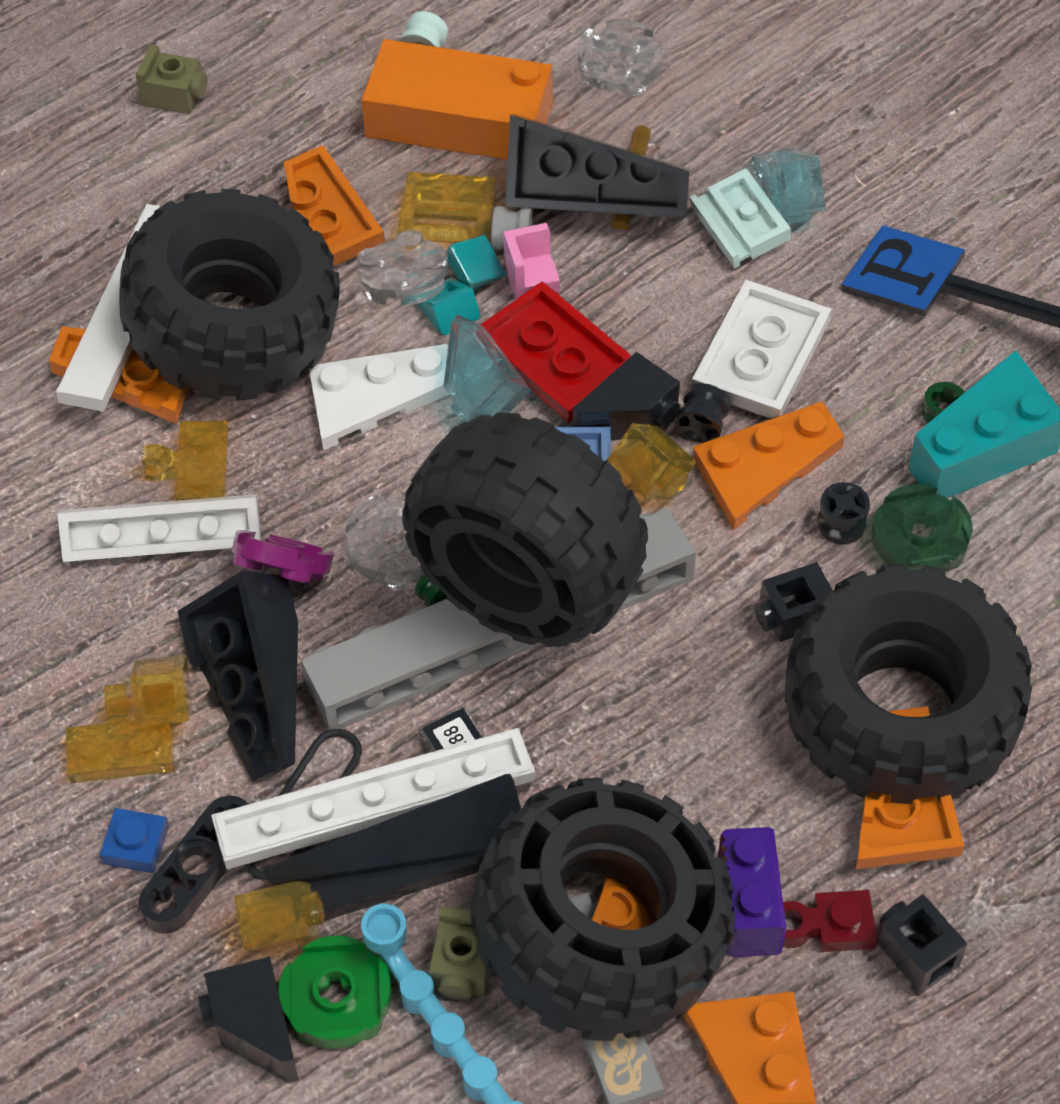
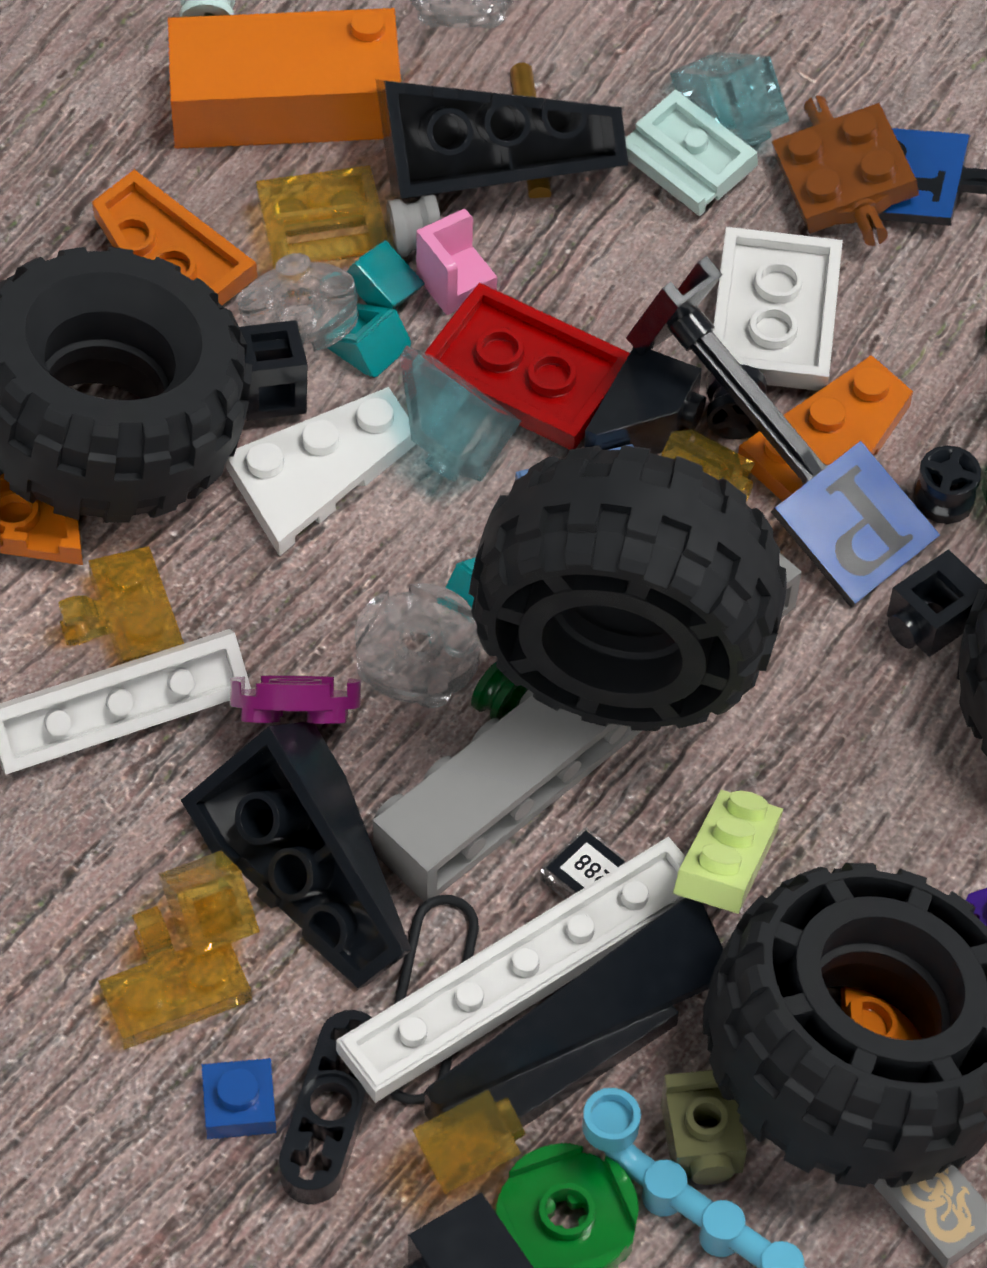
camera: 20 degrees left, 0 degrees up
(361, 312) = (277, 370): none -> black brick
(555, 749) = (728, 850): none -> yellowish green plate
(756, 518) = (846, 513): none -> piece
(856, 256) = (845, 169): none -> dark orange plate

